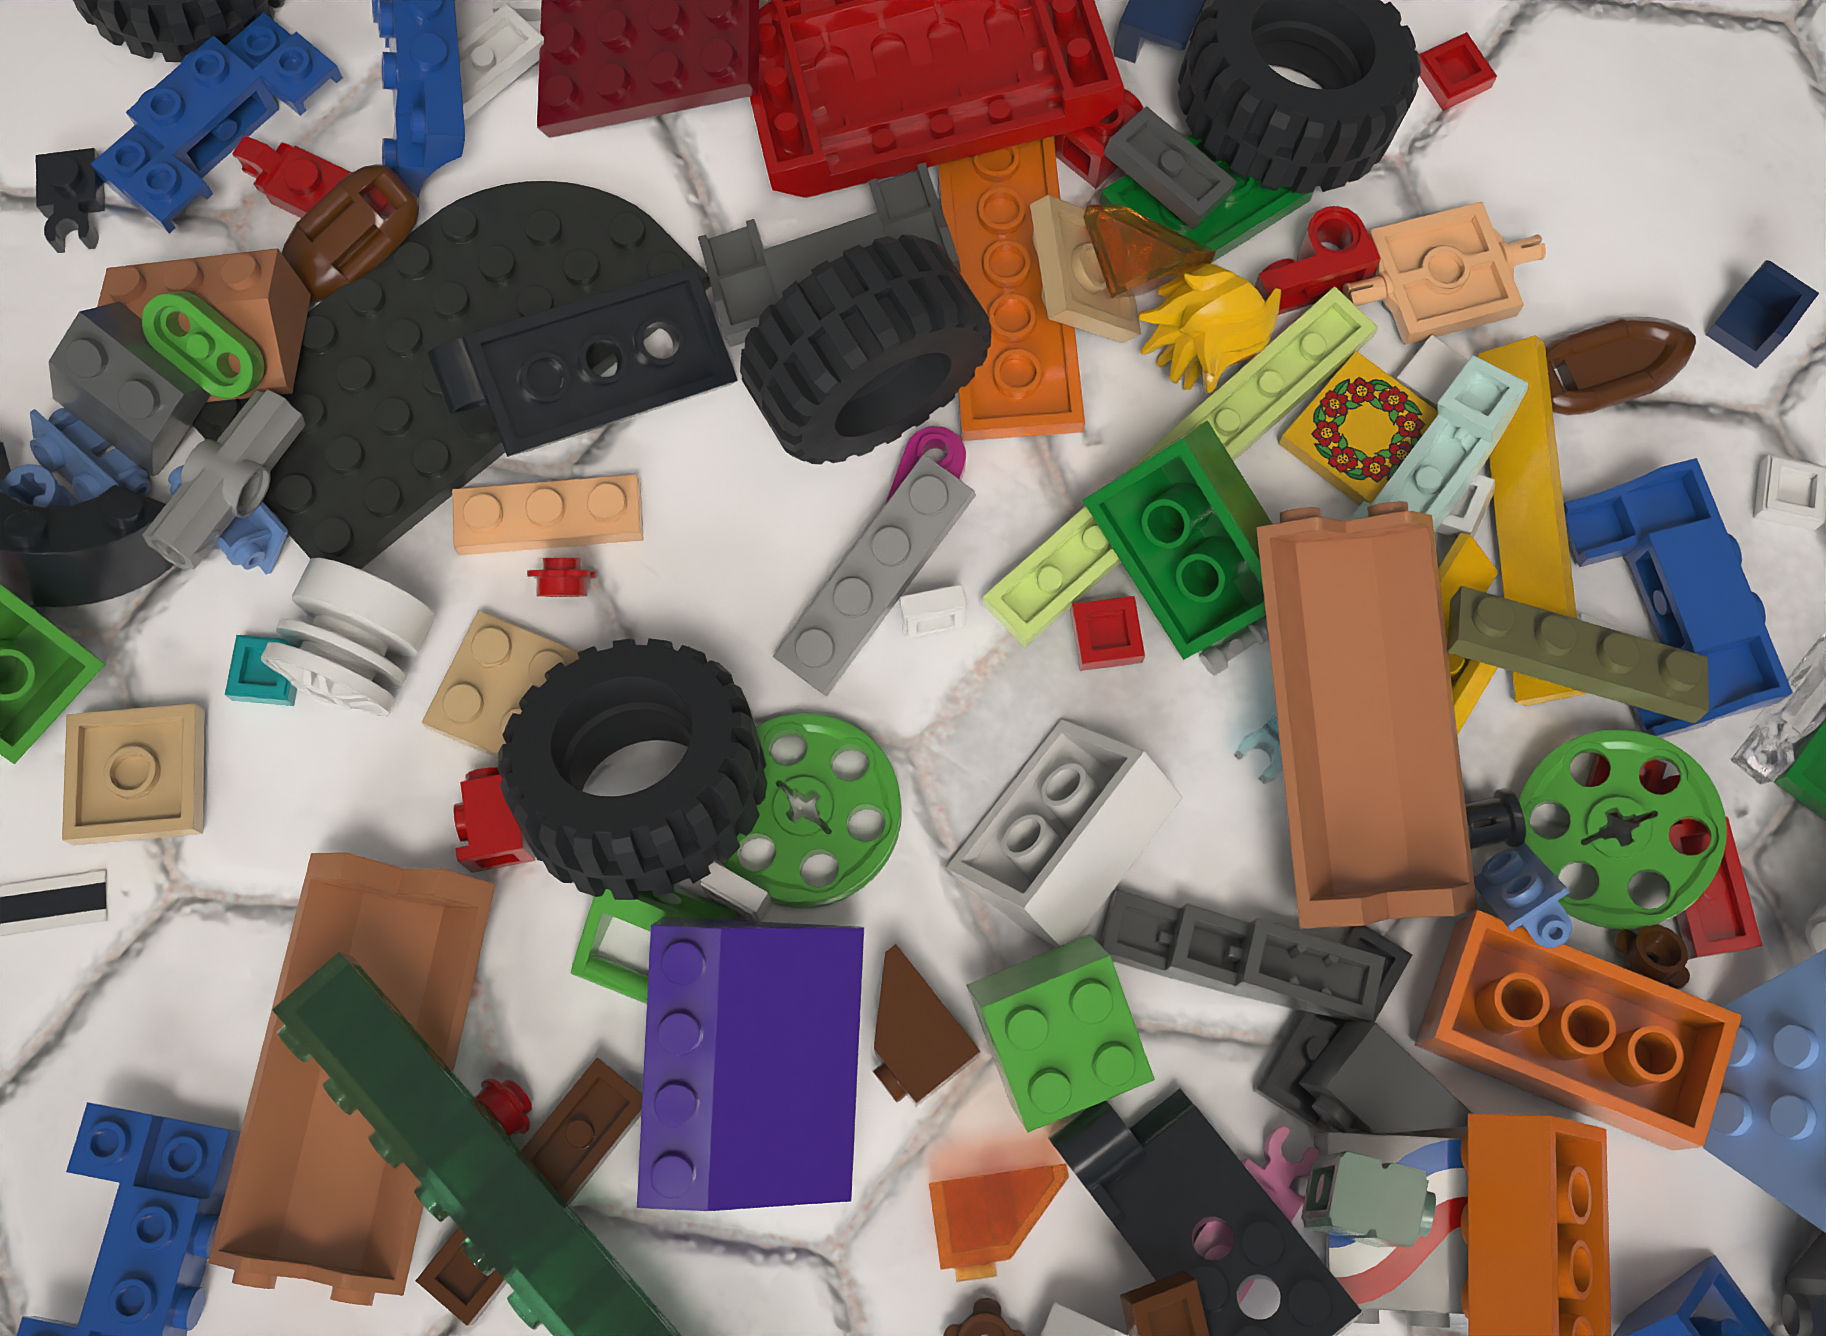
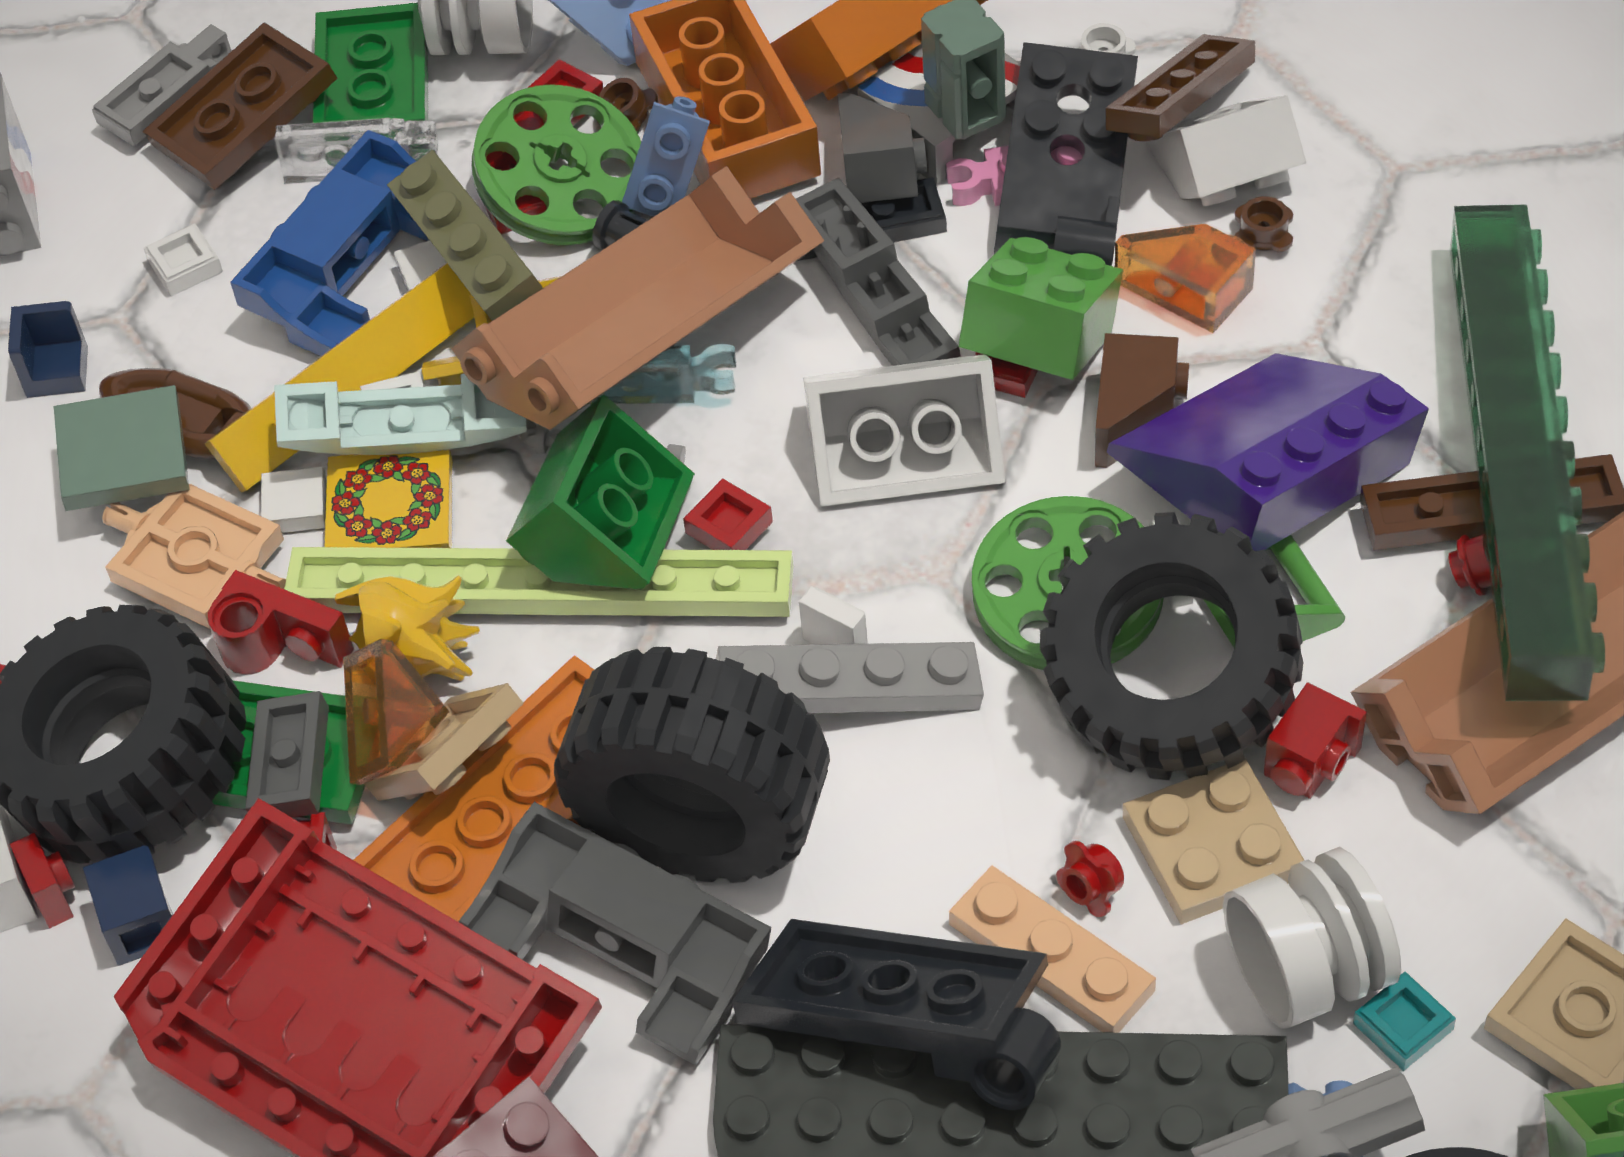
camera: 130 degrees left, 20 degrees down
(1591, 279) = (120, 448): none -> sand green tile

